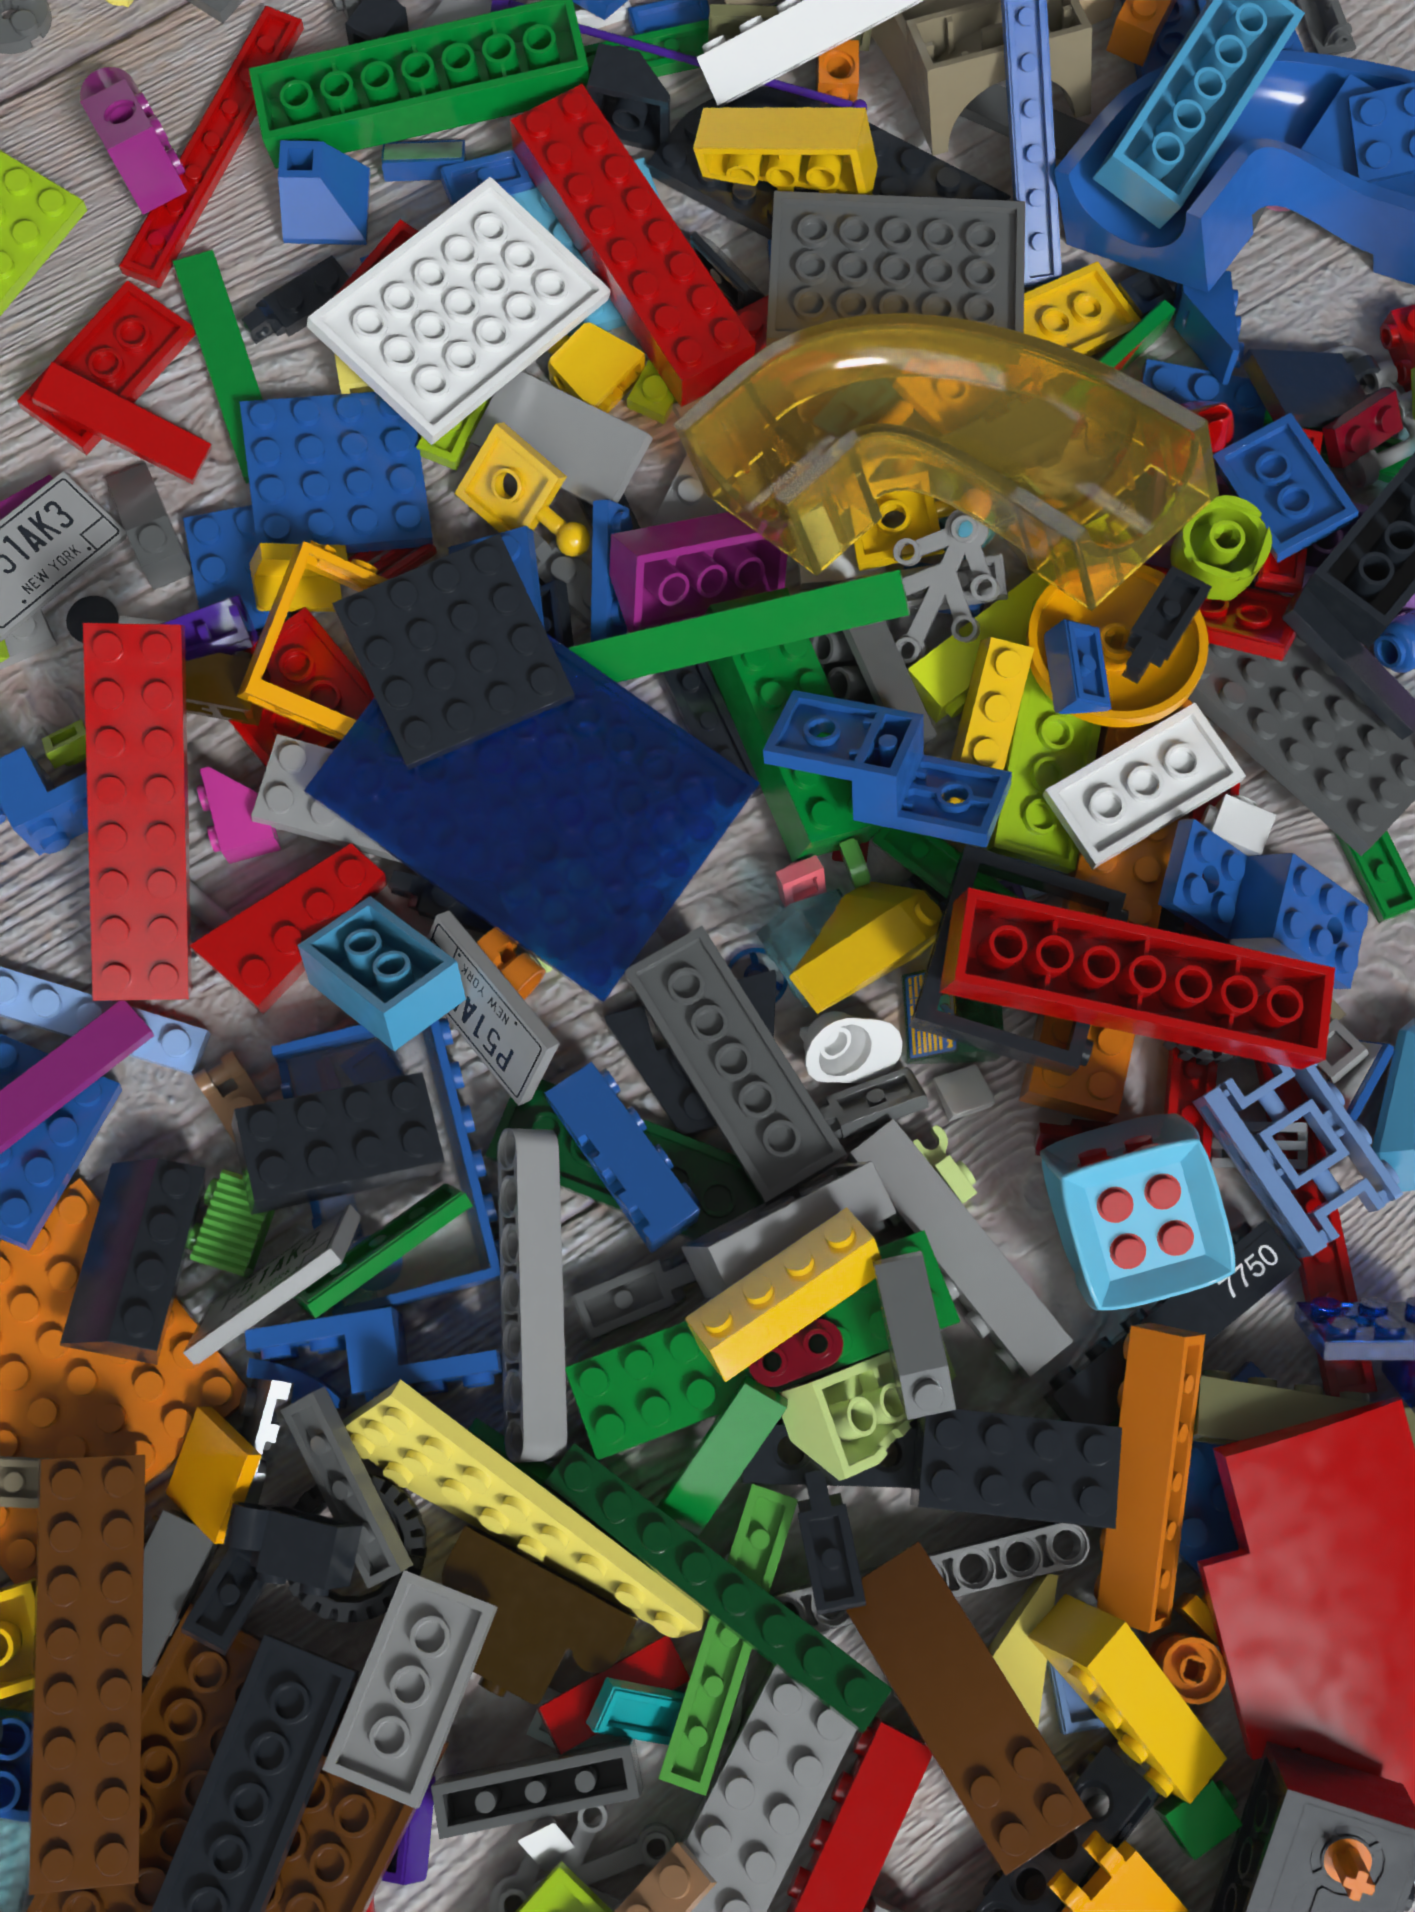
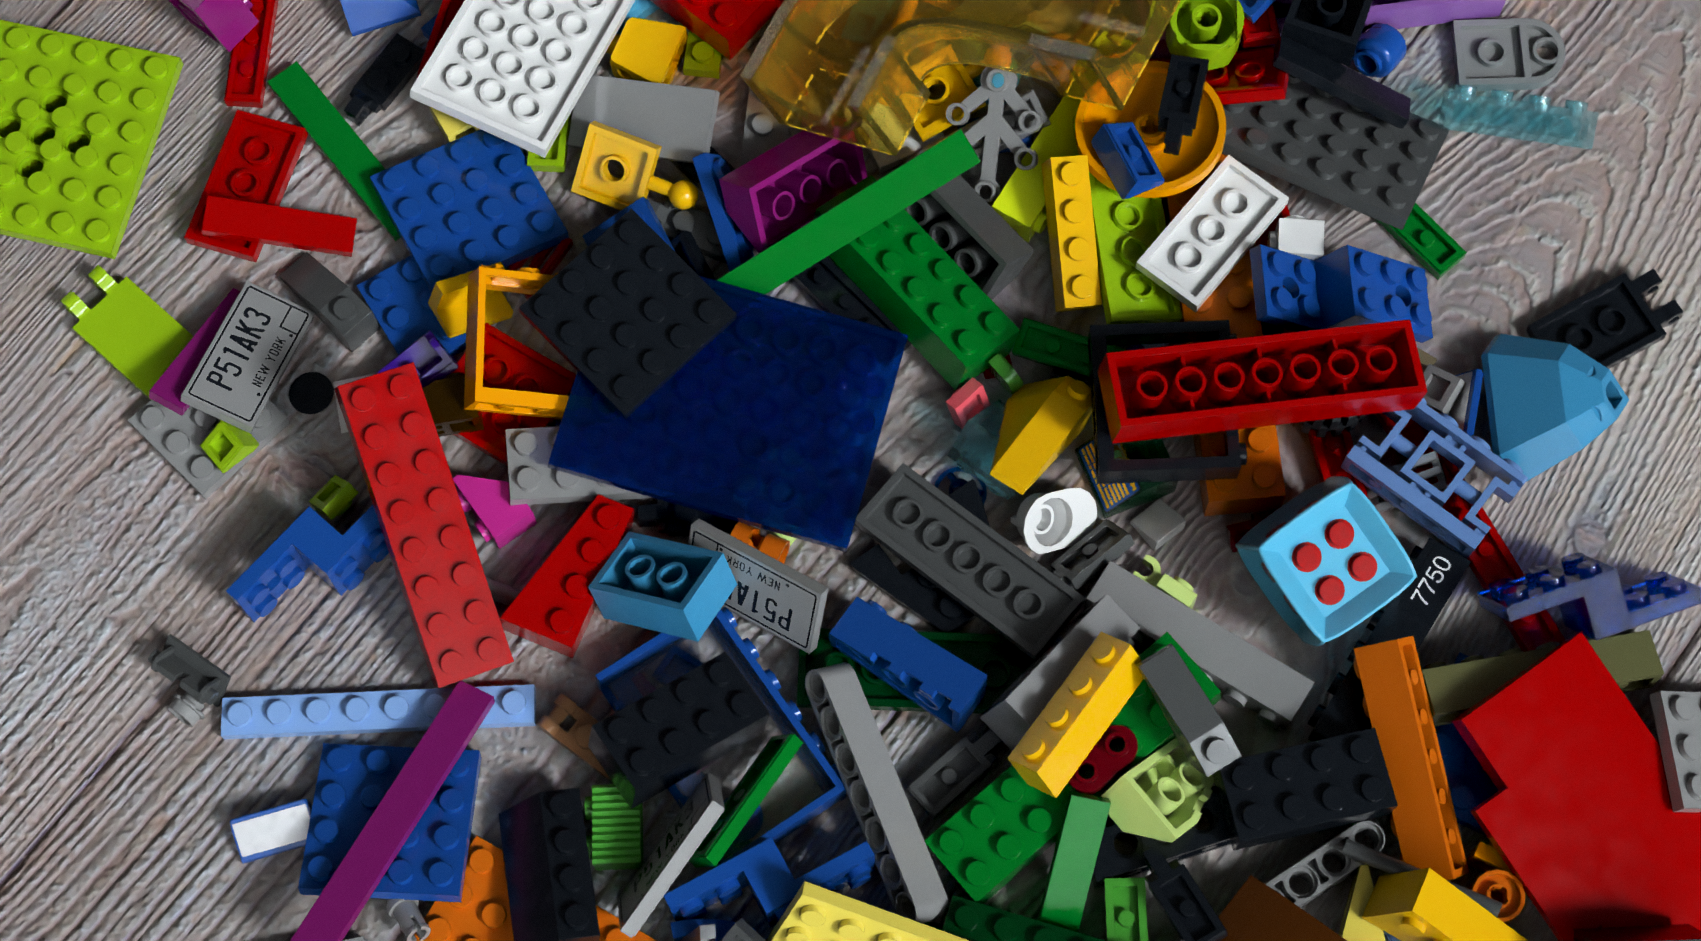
camera: 10 degrees left, 5 degrees down
(888, 768) = (1001, 280): blue bracket -> none
(1089, 1594) = (1392, 866): none -> dark grey bar

